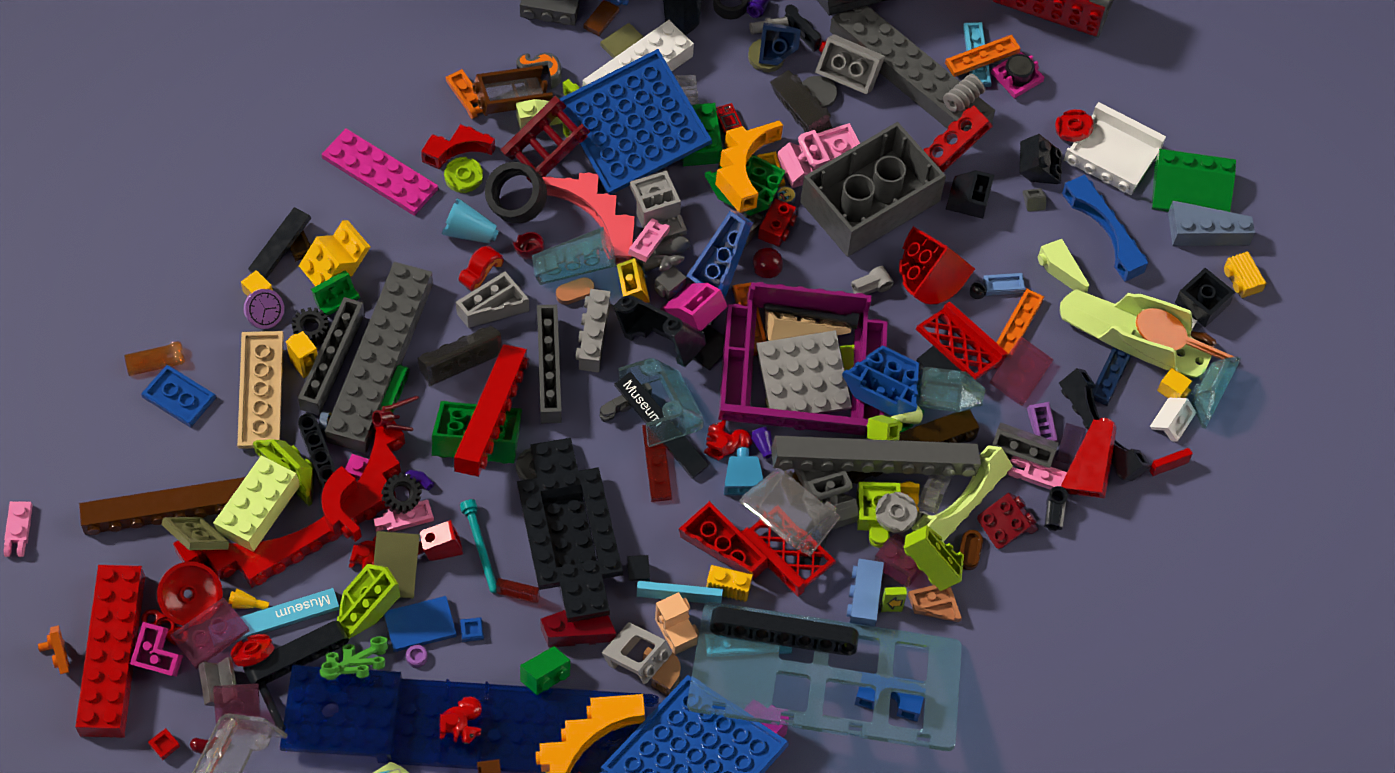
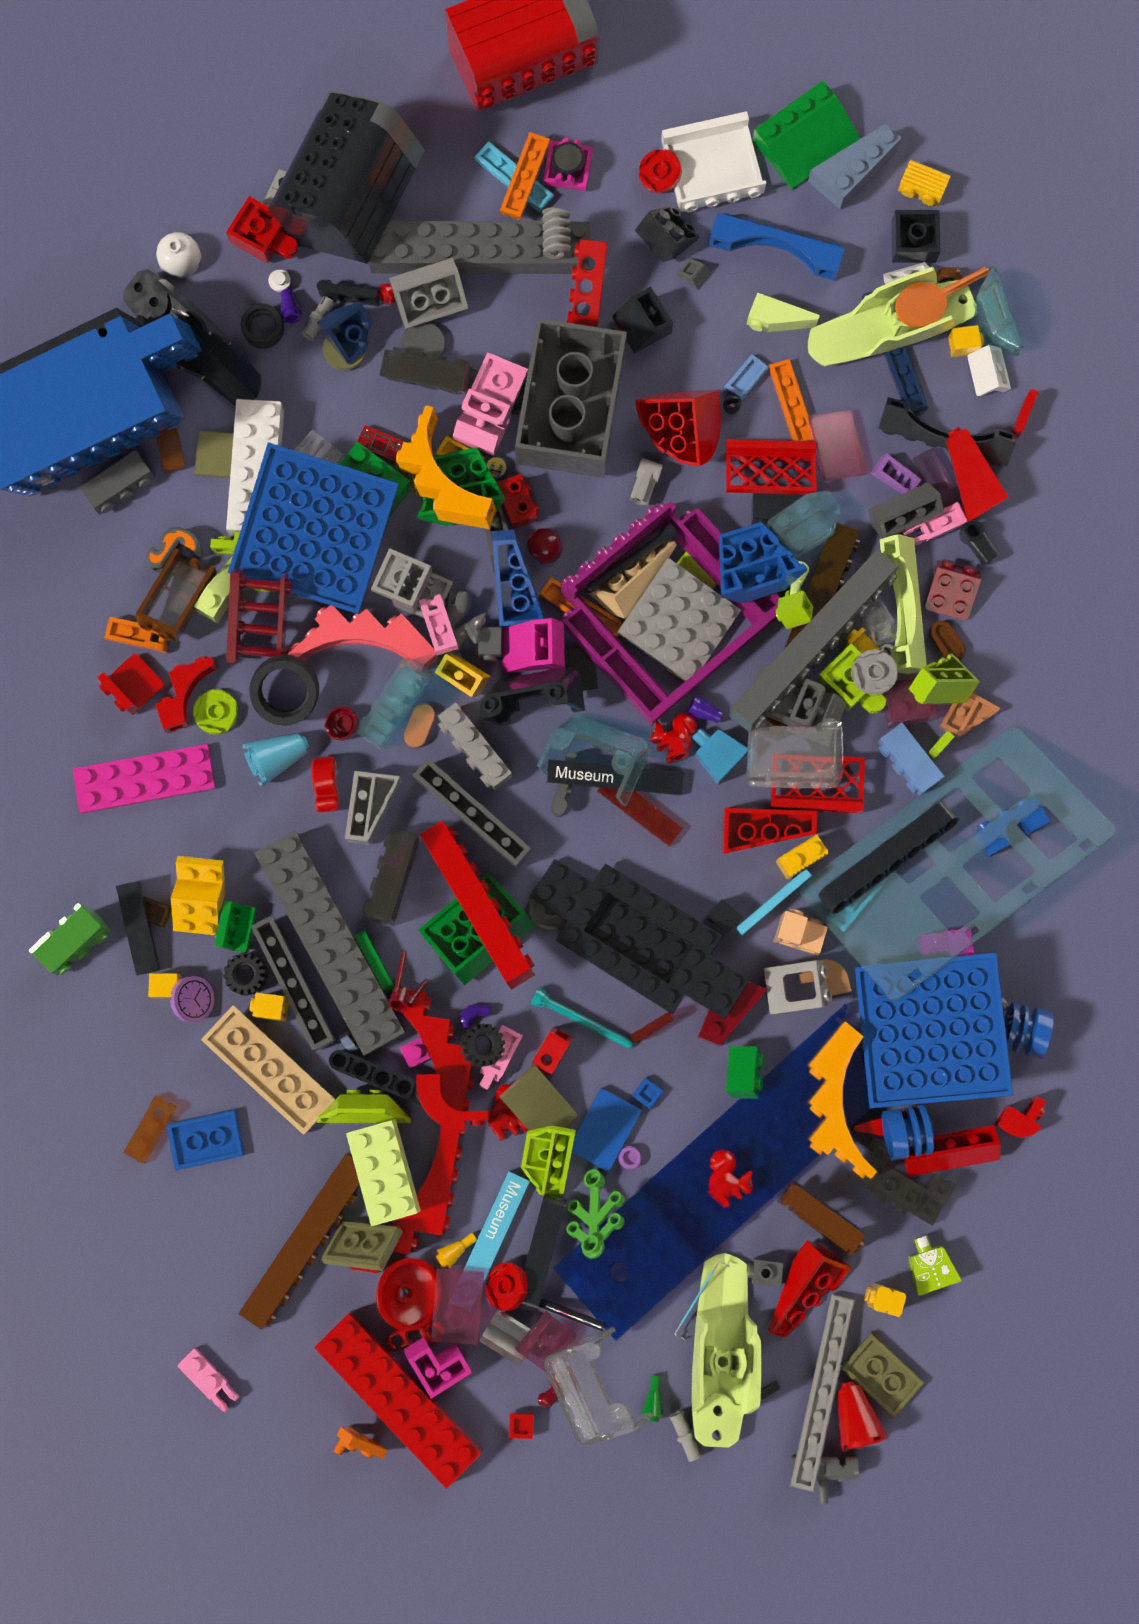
camera: 40 degrees left, 20 degrees up
(235, 209) = (71, 940): none -> bright green wedge
(431, 115) = (131, 684): none -> red bracket

